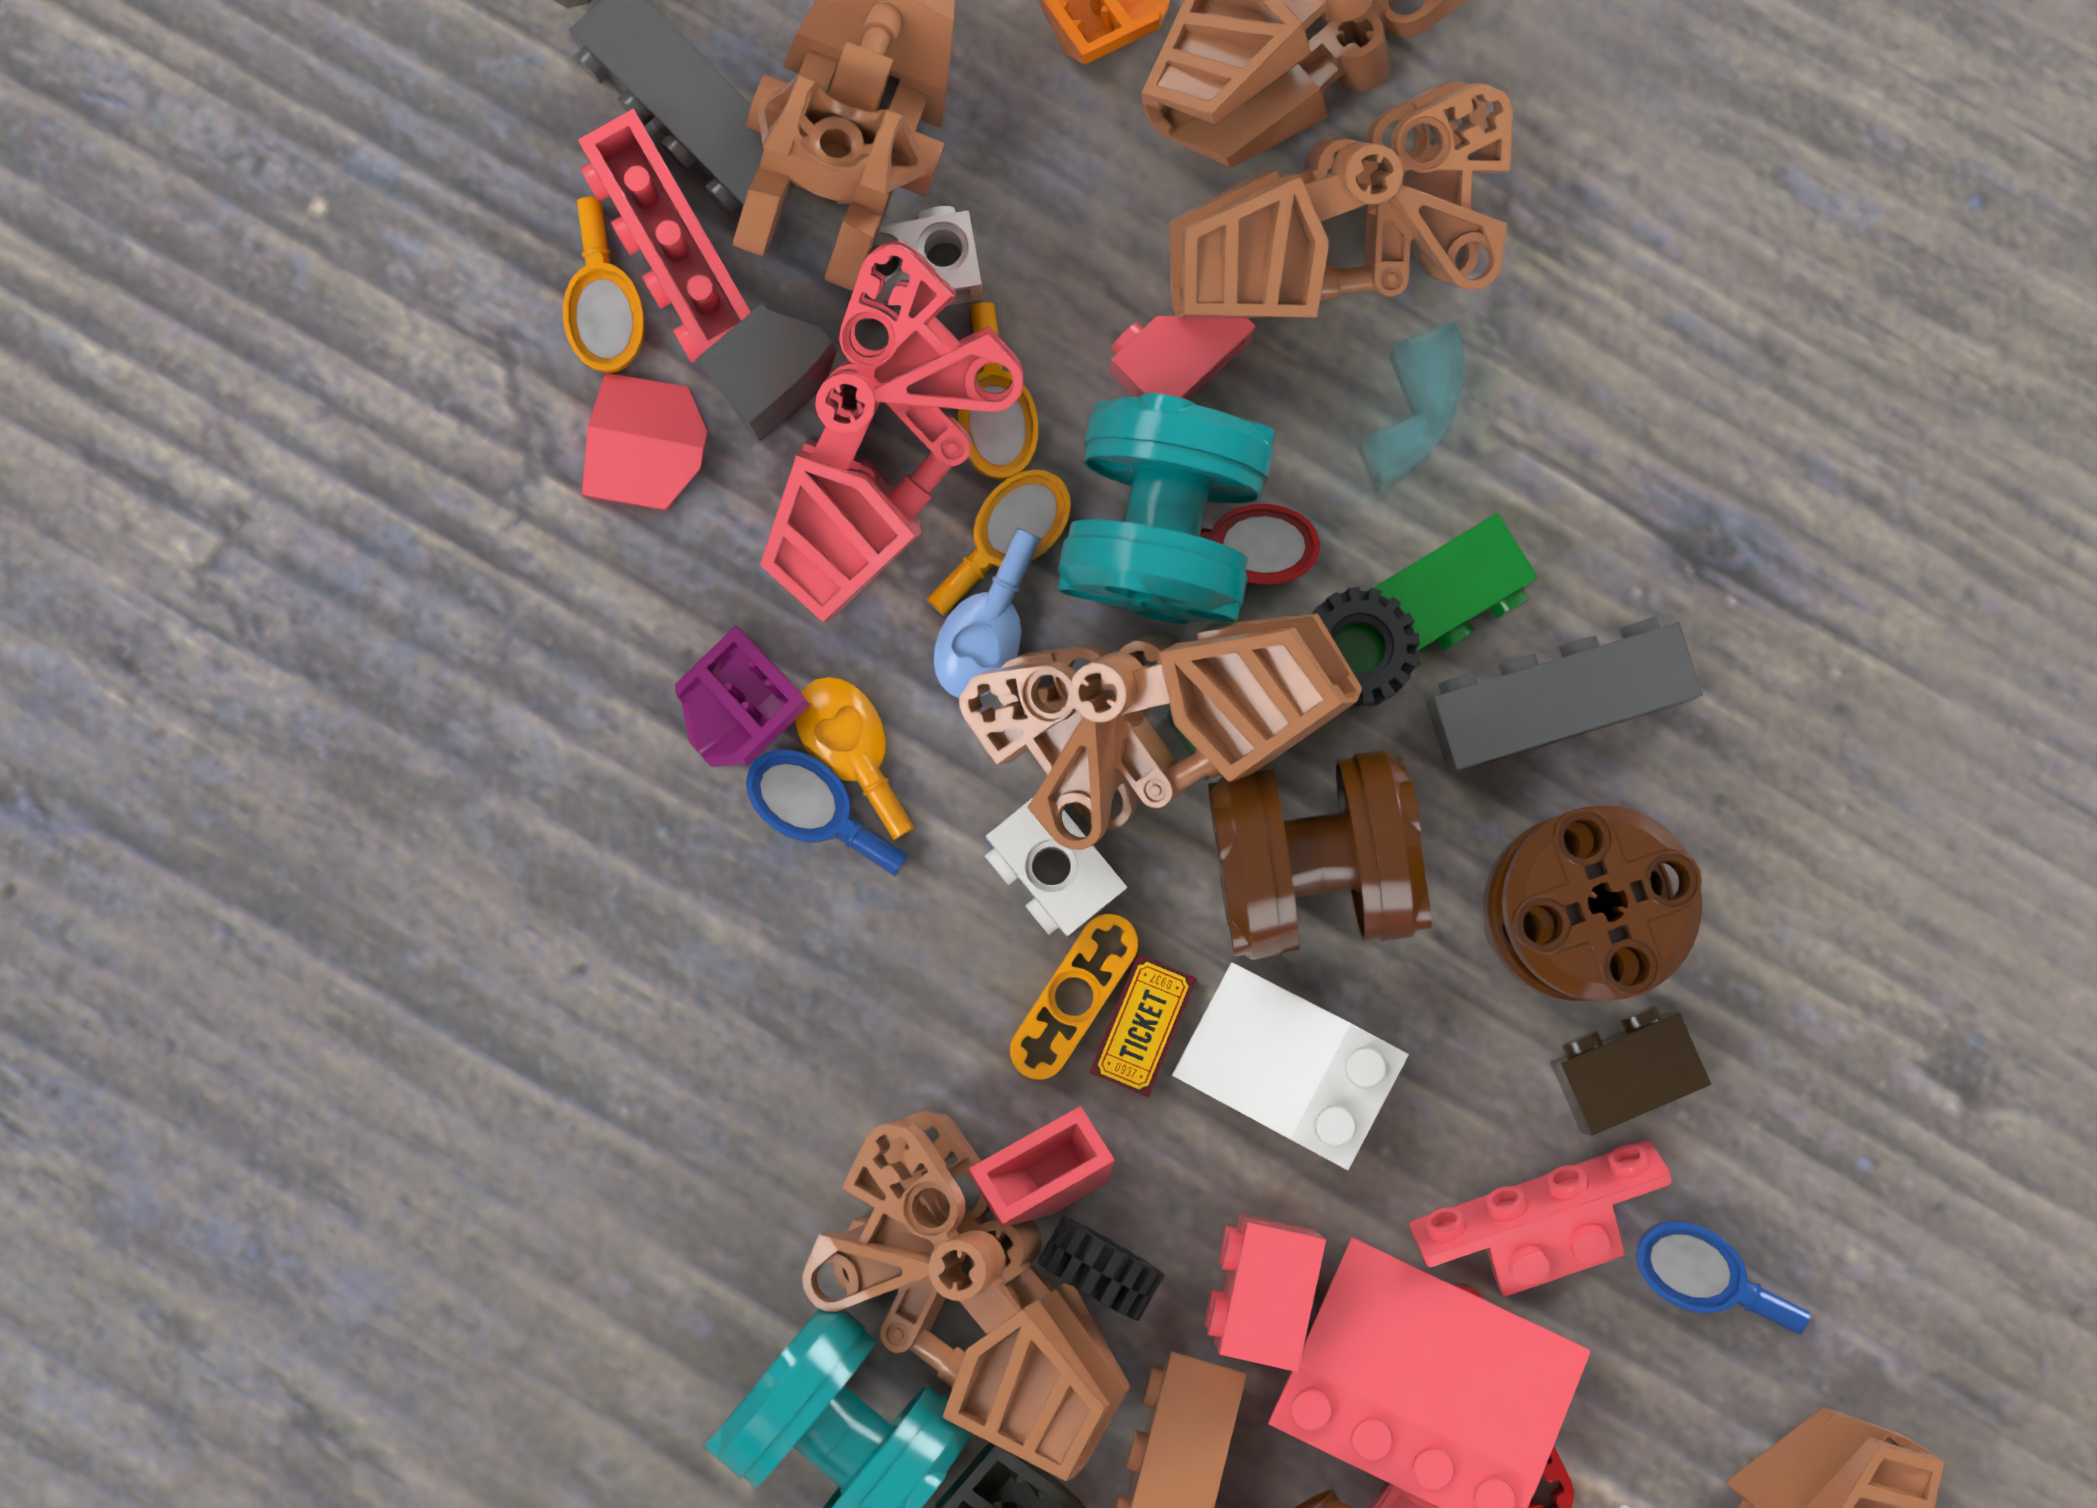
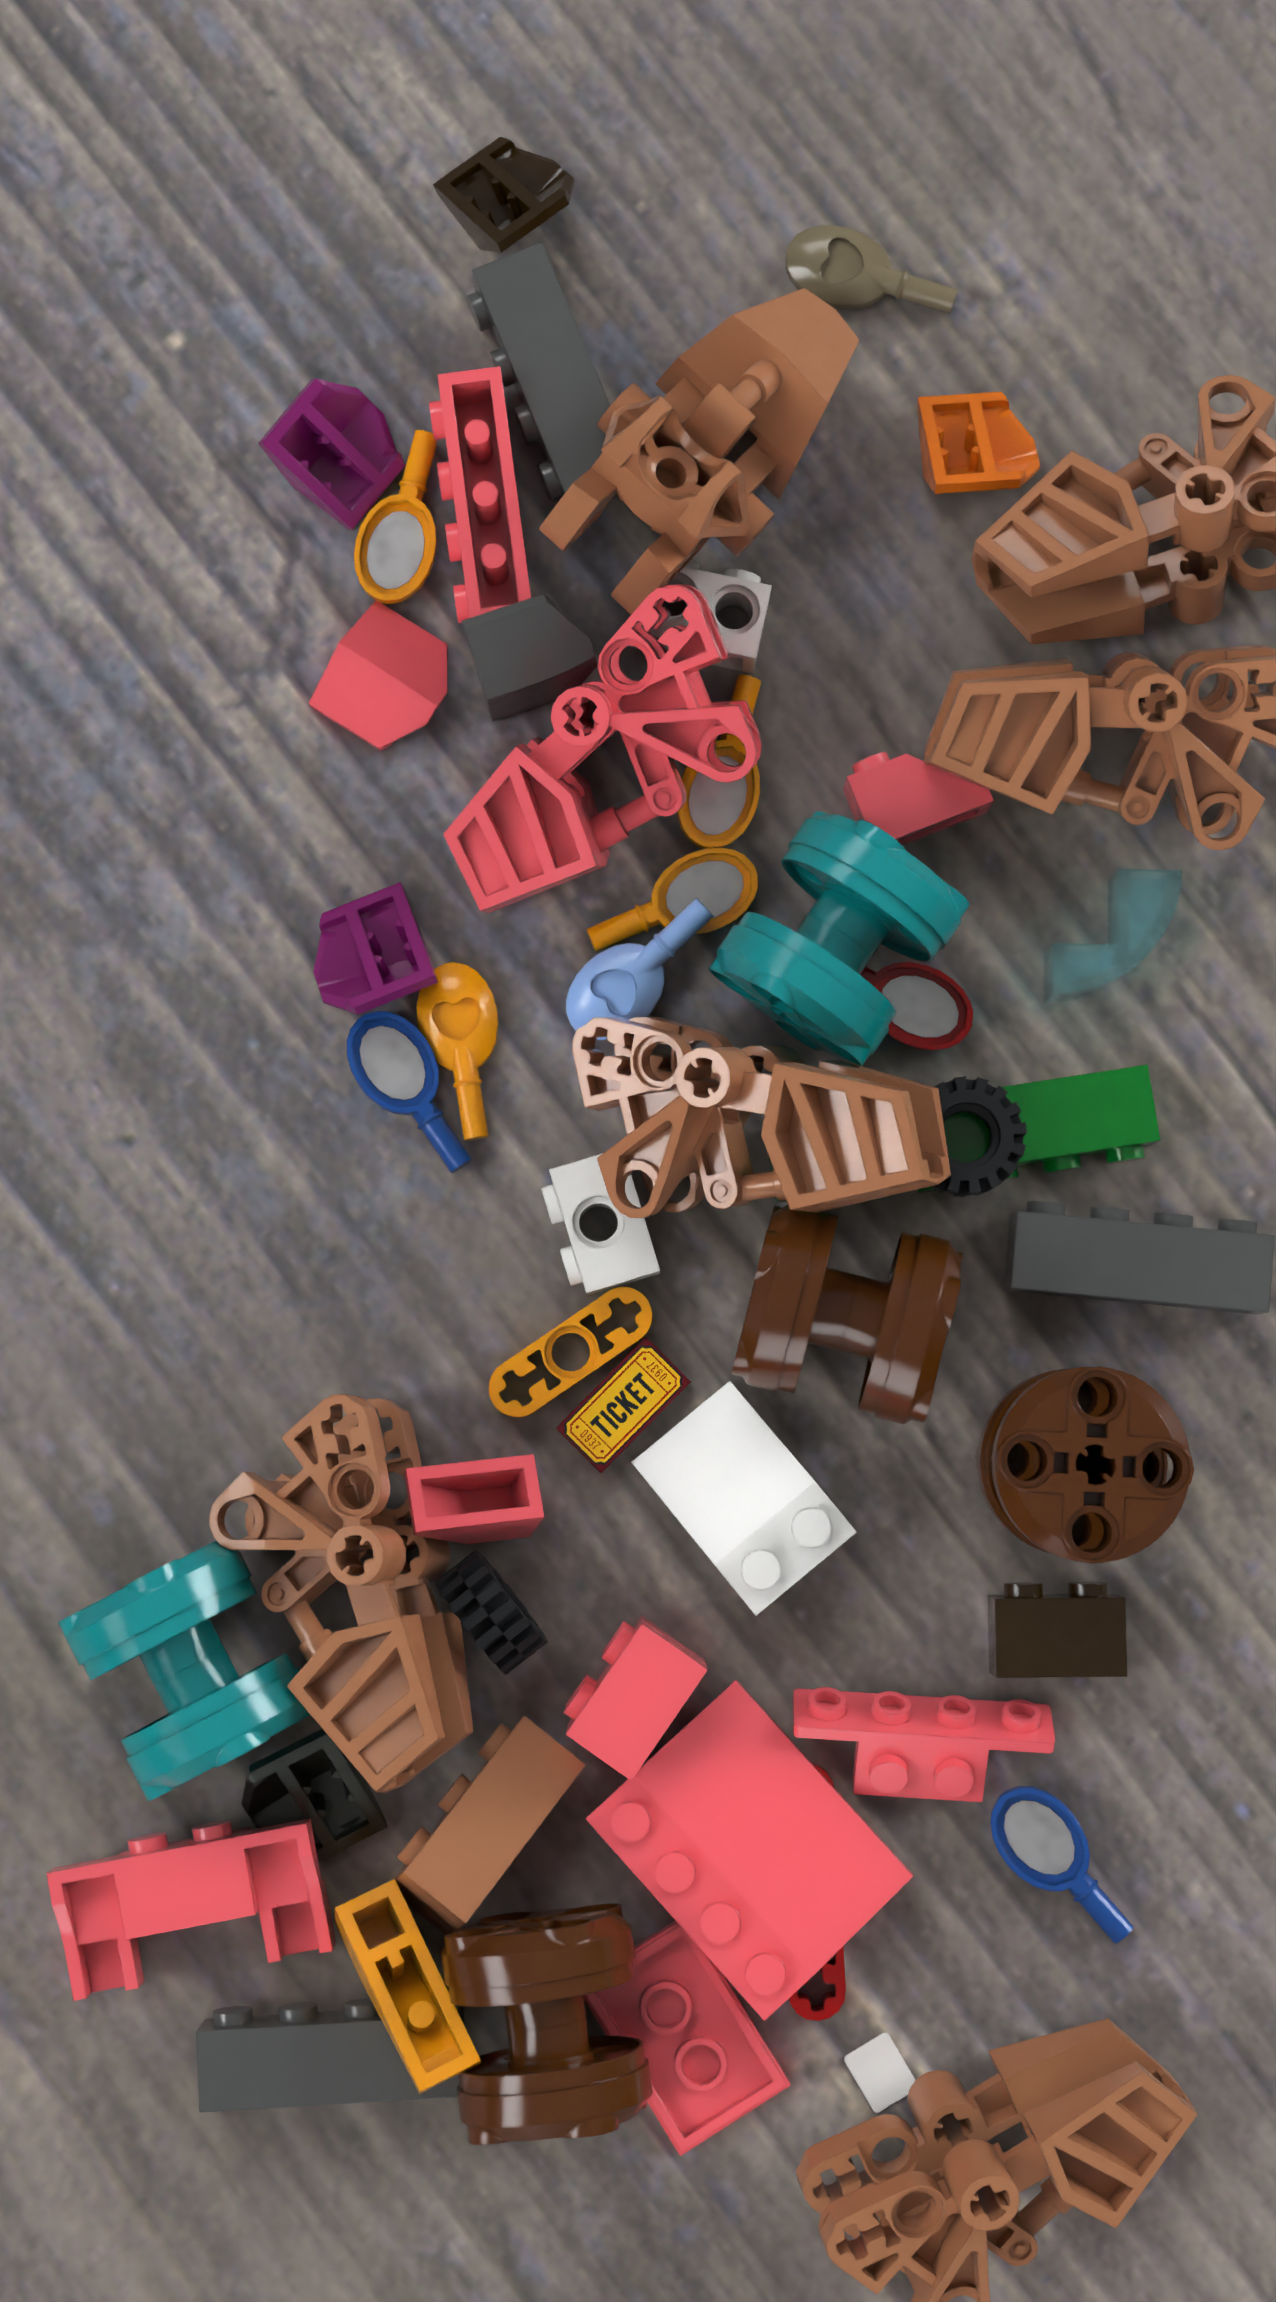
camera: 20 degrees right, 0 degrees up
(509, 248) = (334, 449): none -> magenta slope

